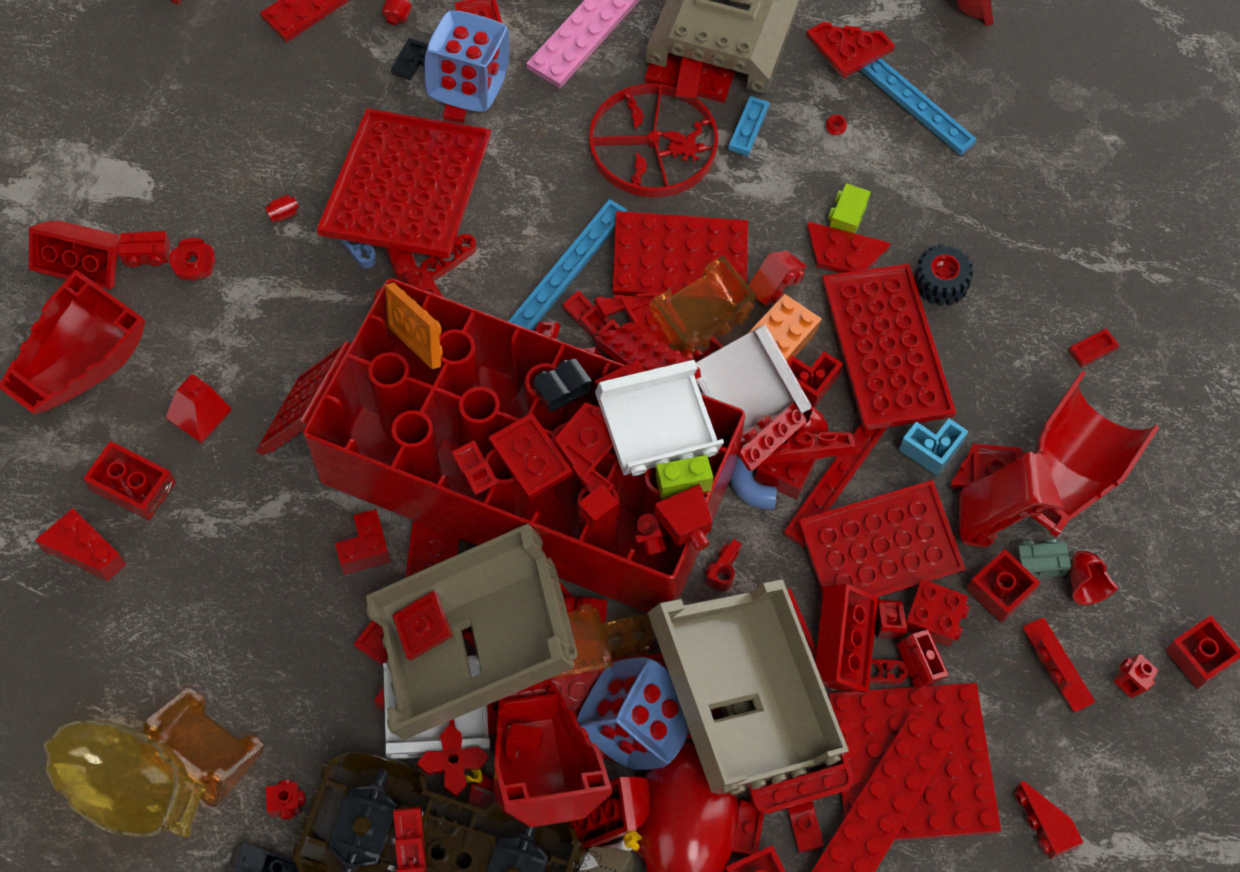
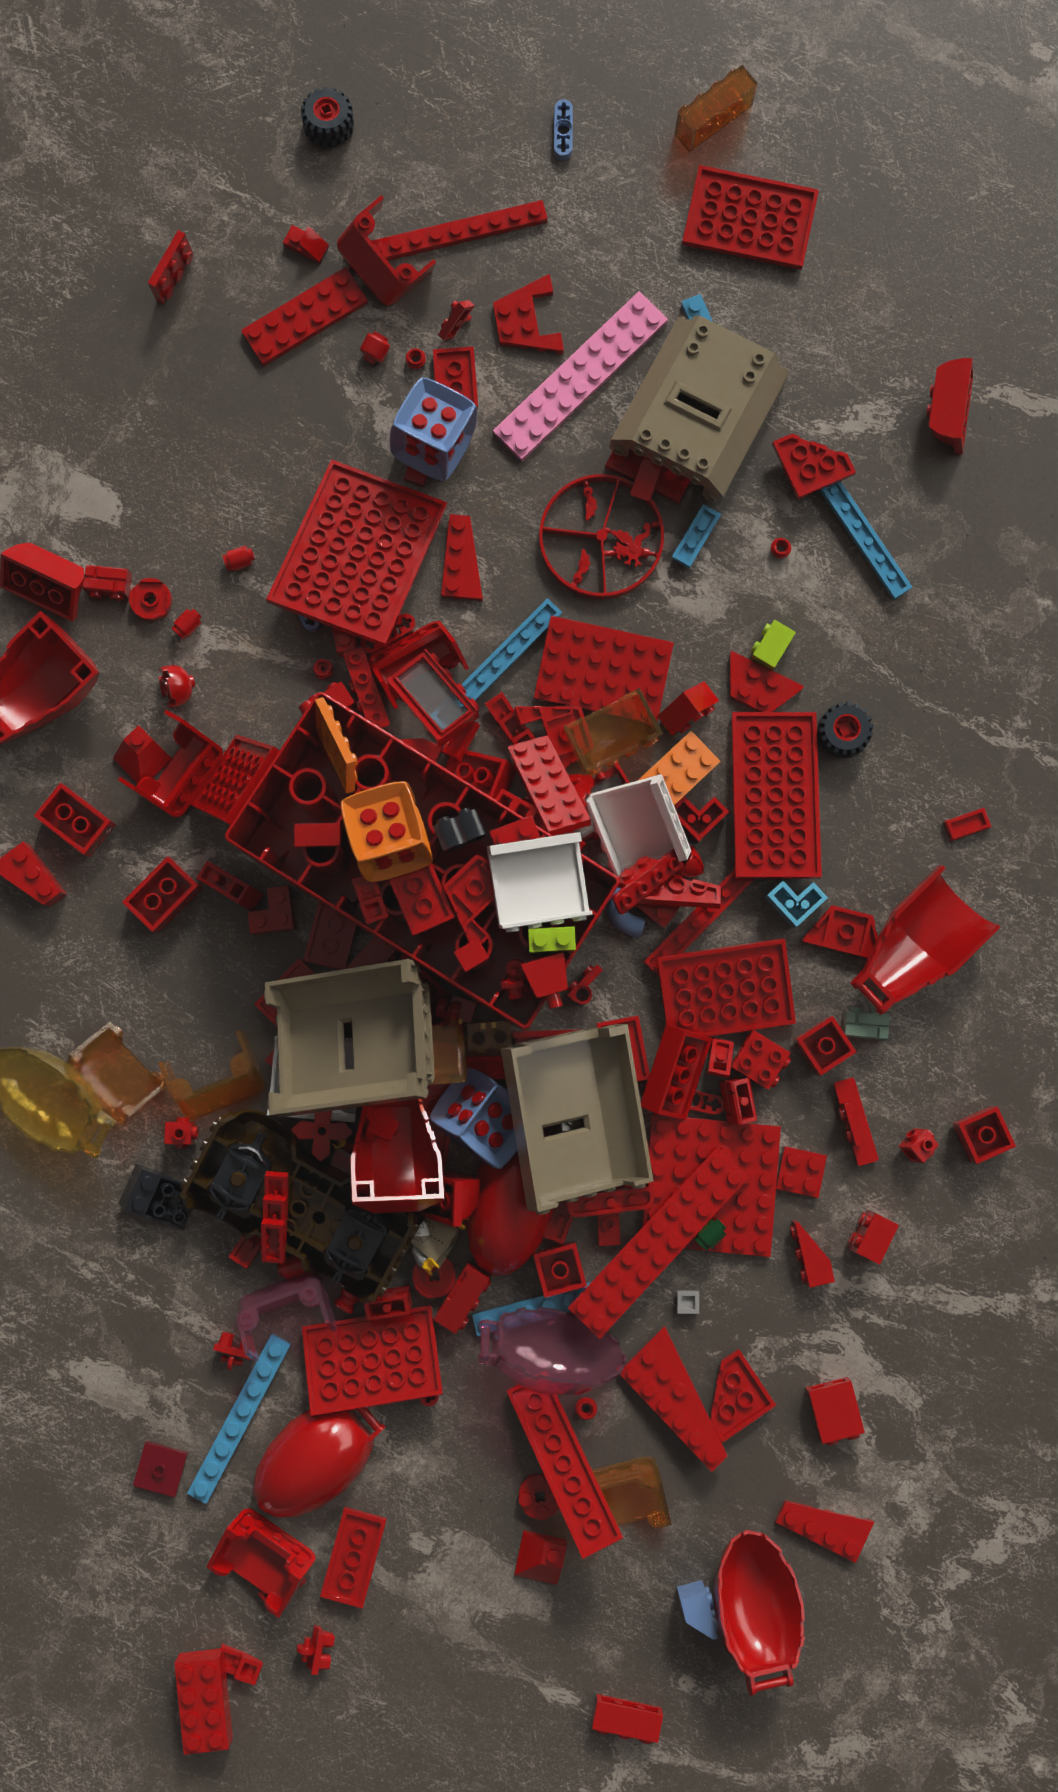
camera: 10 degrees right, 20 degrees up
(227, 333) = (176, 685): none -> red cylinder
(233, 275) = (187, 623): none -> red brick
(235, 543) = (162, 895): none -> red brick
(250, 416) = (184, 773): none -> red windscreen
(305, 758) = (243, 1084): none -> clear orange windscreen
(311, 524) = (229, 886): none -> red slope
(406, 414) = (317, 835): none -> red tile
(409, 59) = (384, 403): black plate -> none
(422, 625) = (310, 1015): red plate -> none
(436, 13) = (415, 352): none -> red plate
(484, 385) = (386, 831): none -> orange piece
(485, 269) = (396, 655): none -> red windscreen
(508, 297) = (434, 697): none -> window
(514, 183) = (460, 567): none -> red wing
(927, 811) = (711, 1234): none -> dark green brick
(1006, 498) = (844, 973): red windscreen -> none
(1011, 730) = (801, 1171): none -> red plate
(1090, 579) = (902, 1049): red helmet -> none
(1112, 782) = (872, 1236): none -> red brick

